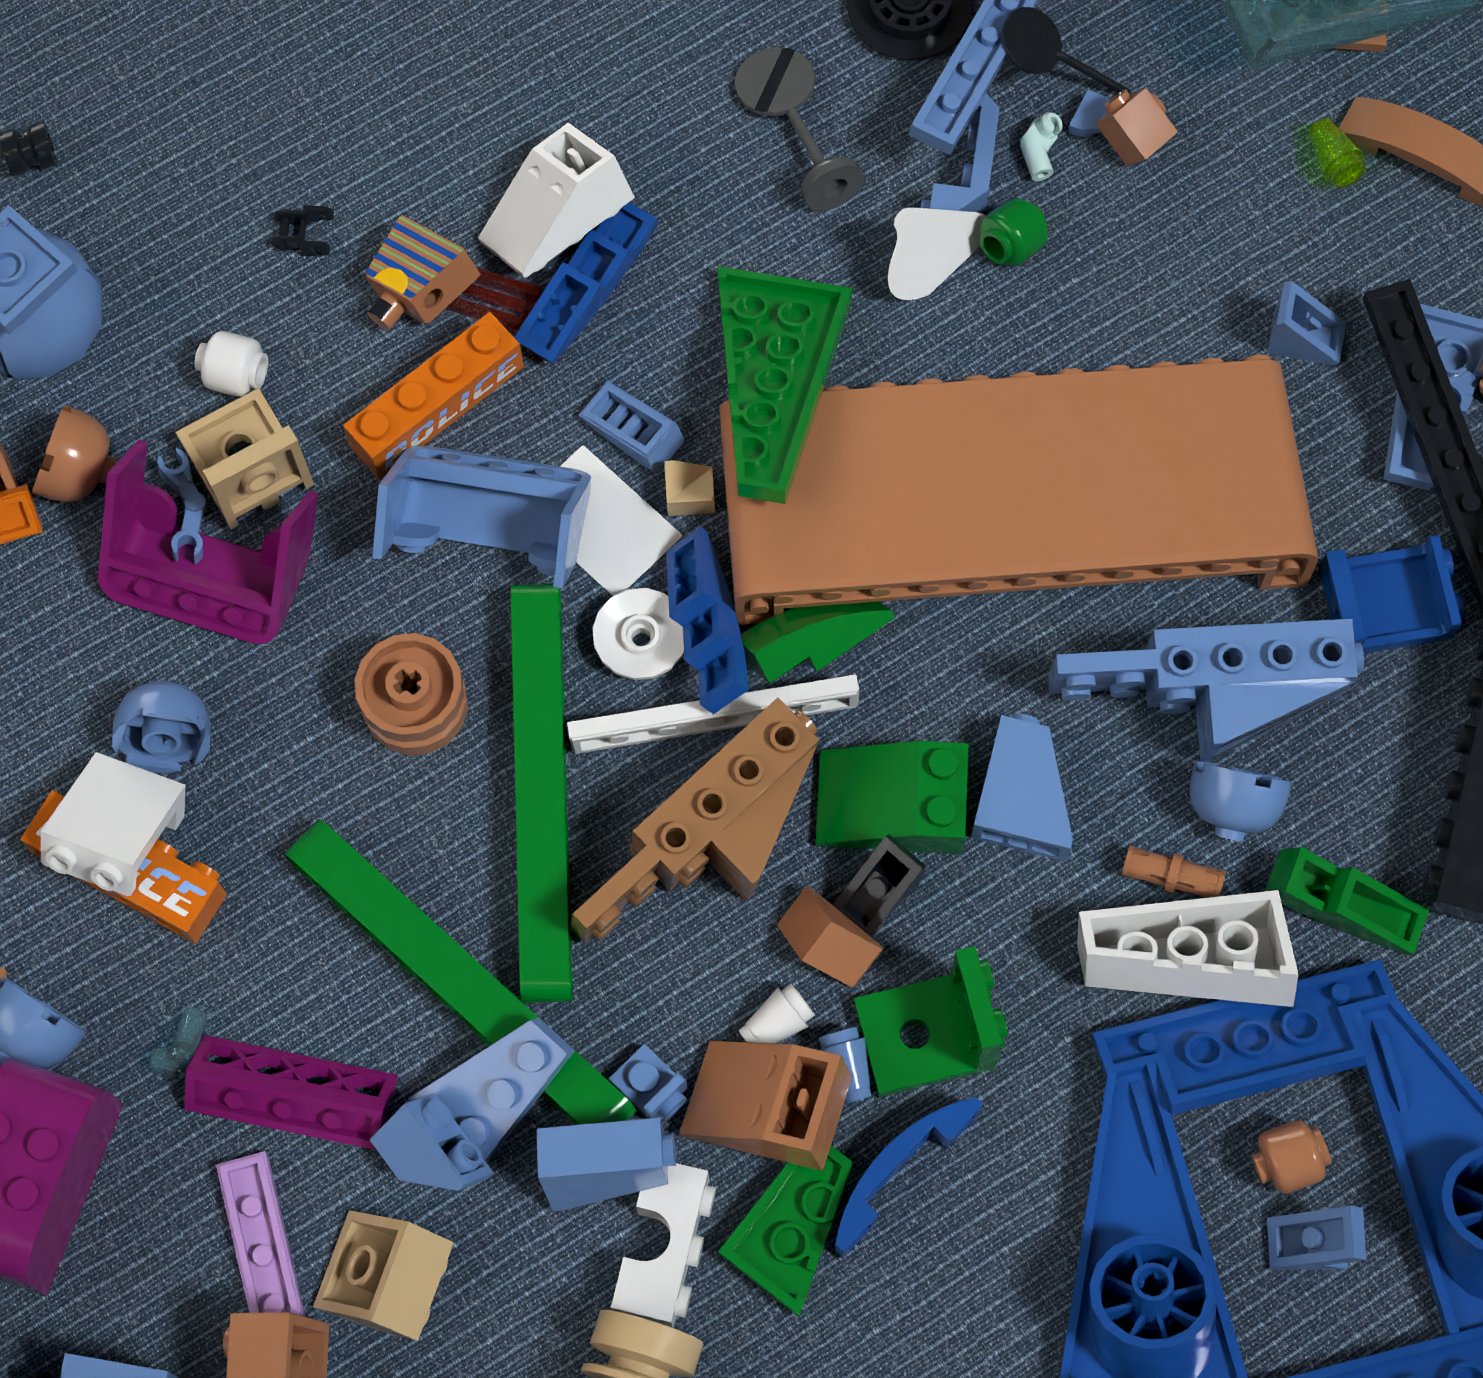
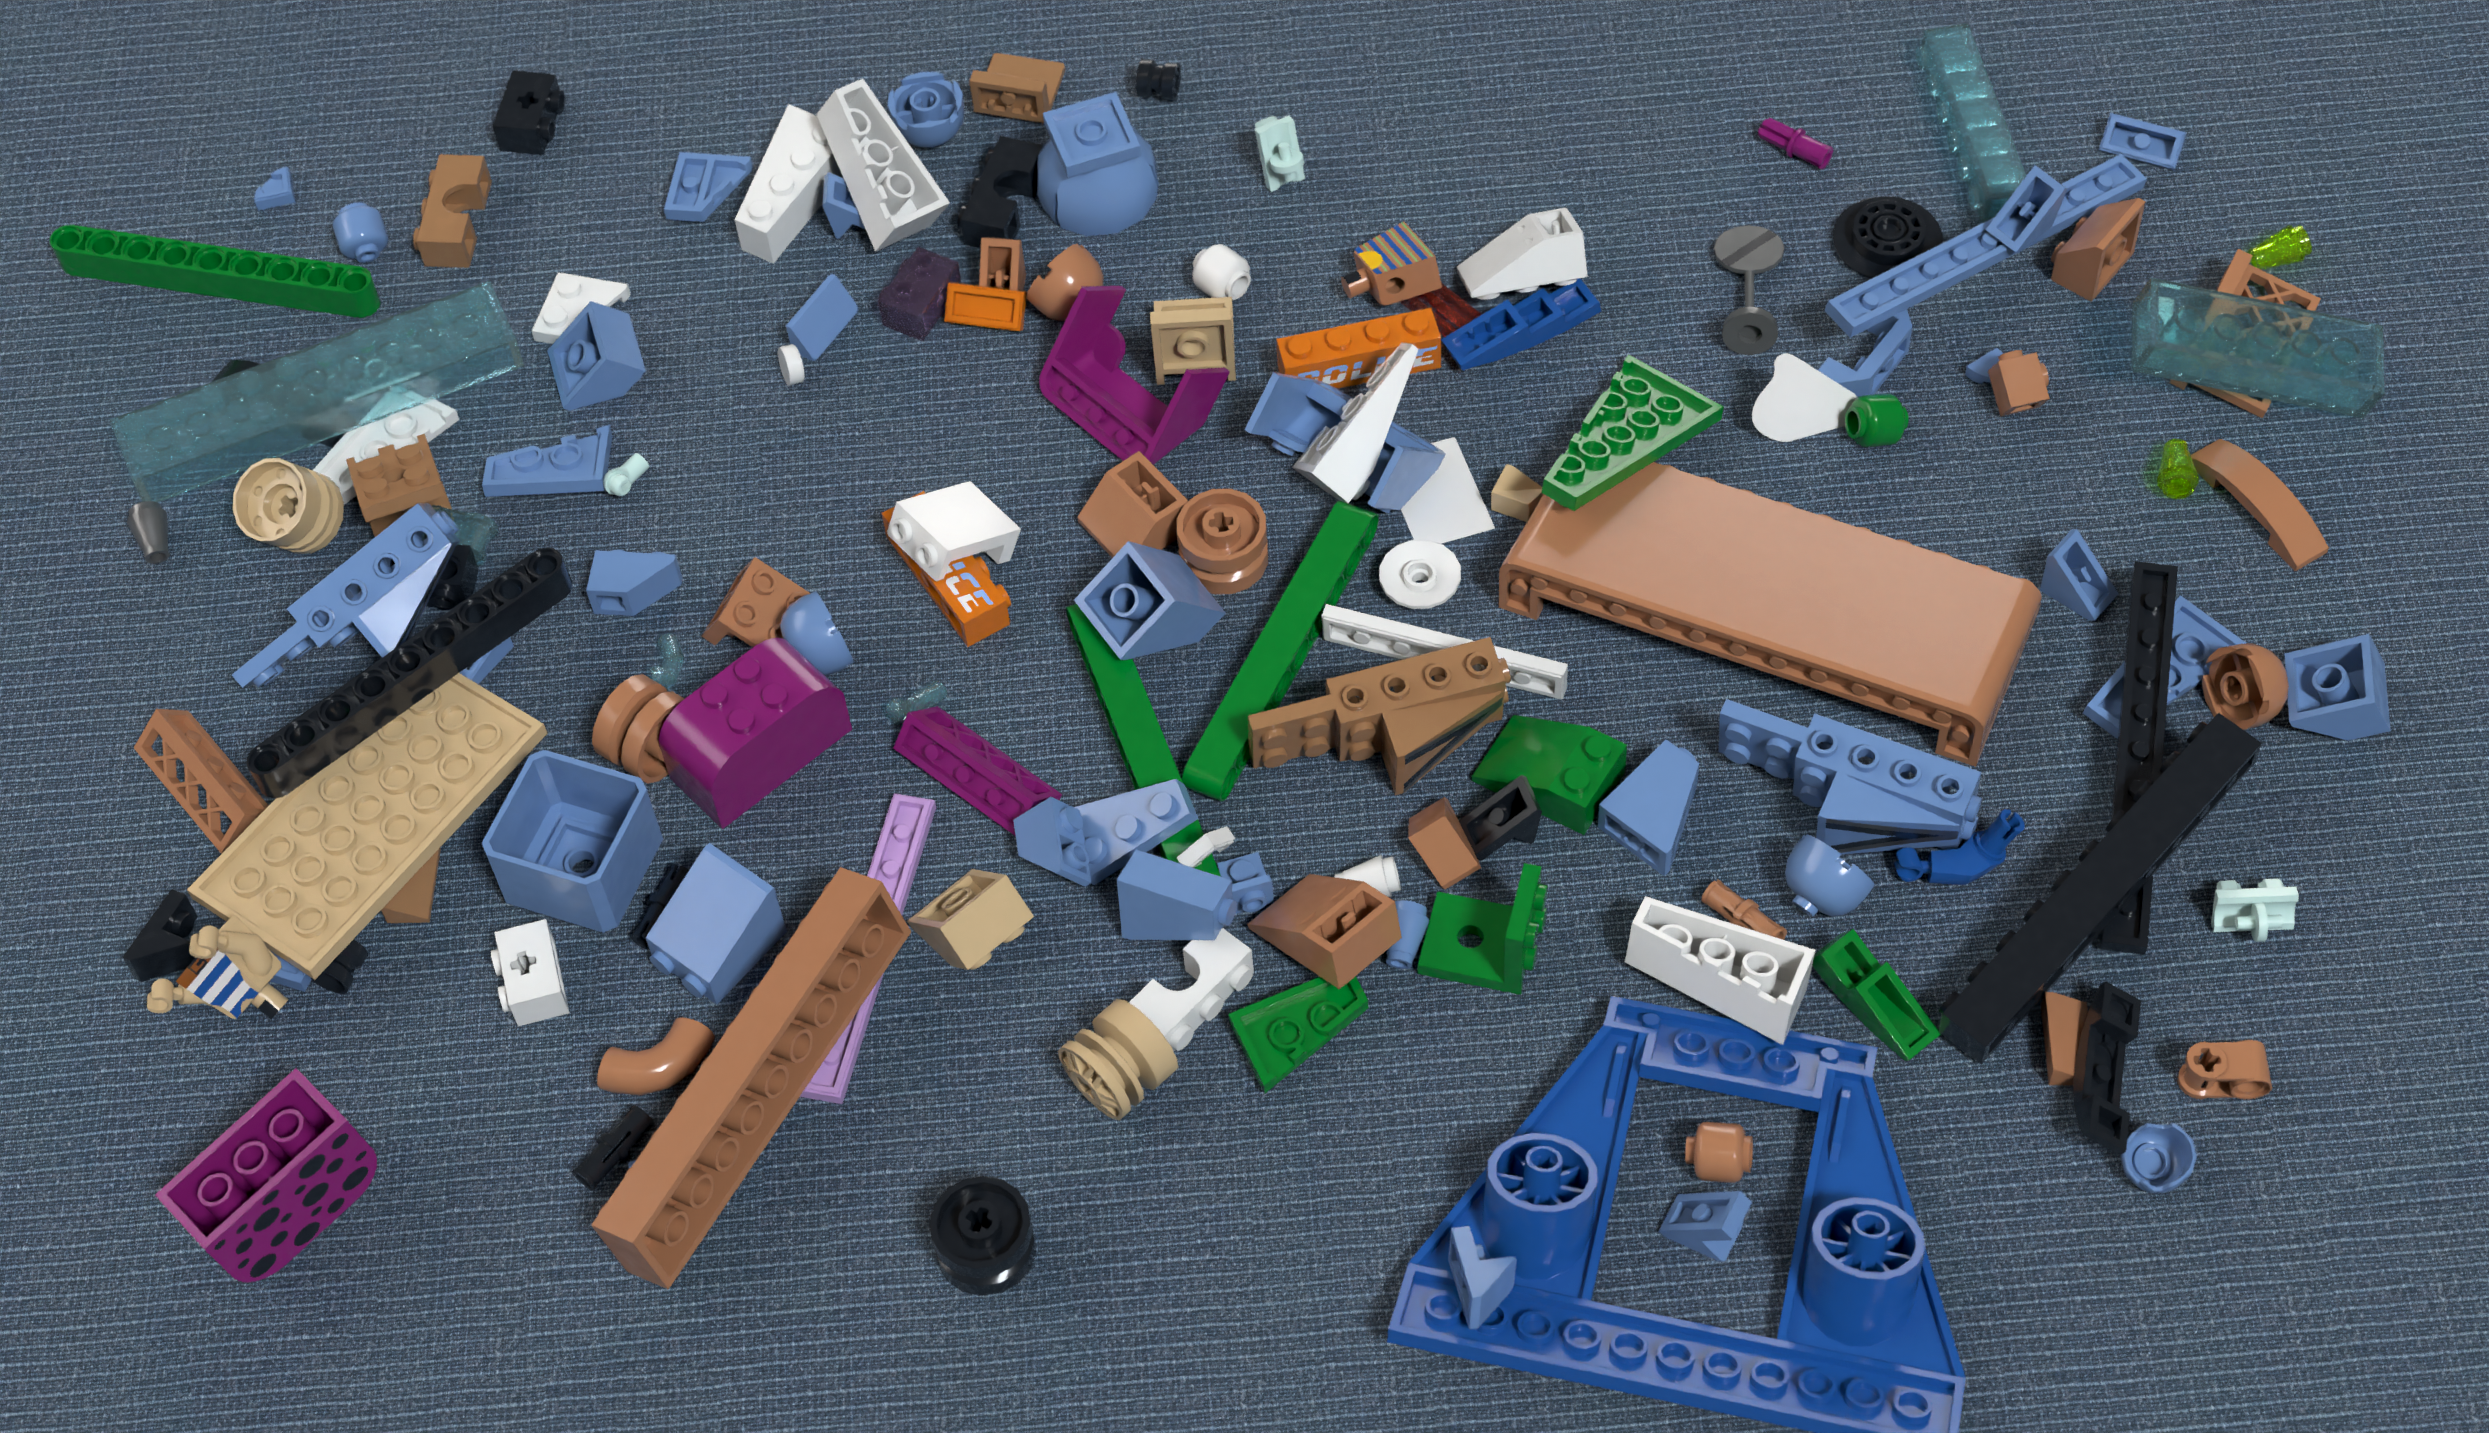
camera: 30 degrees right, 15 degrees down
(161, 726) = (1027, 485): medium blue cylinder -> none
(195, 504) = (1139, 359): medium blue piece -> none
(216, 185) = (1279, 151): none -> light aqua hips
(296, 704) = (1134, 506): none -> nougat slope
(309, 213) = (1331, 202): black piece -> none
(378, 814) = (1148, 602): none -> medium blue slope
(493, 520) = (1347, 453): none -> white wedge
(600, 1079) = (1203, 847): none -> white tile
(653, 446) = (1499, 440): medium blue slope -> none
(710, 626) = (1474, 580): blue slope -> none
(810, 636) = (1550, 625): green slope -> none
(943, 1125) = (1456, 1005): blue slope -> none
(1036, 46) = (1967, 291): black piece -> none
(1037, 142) = (1935, 369): light aqua arm -> none
(1360, 702) = (1969, 862): none -> blue arm
(1394, 595) = (2044, 794): blue panel -> none

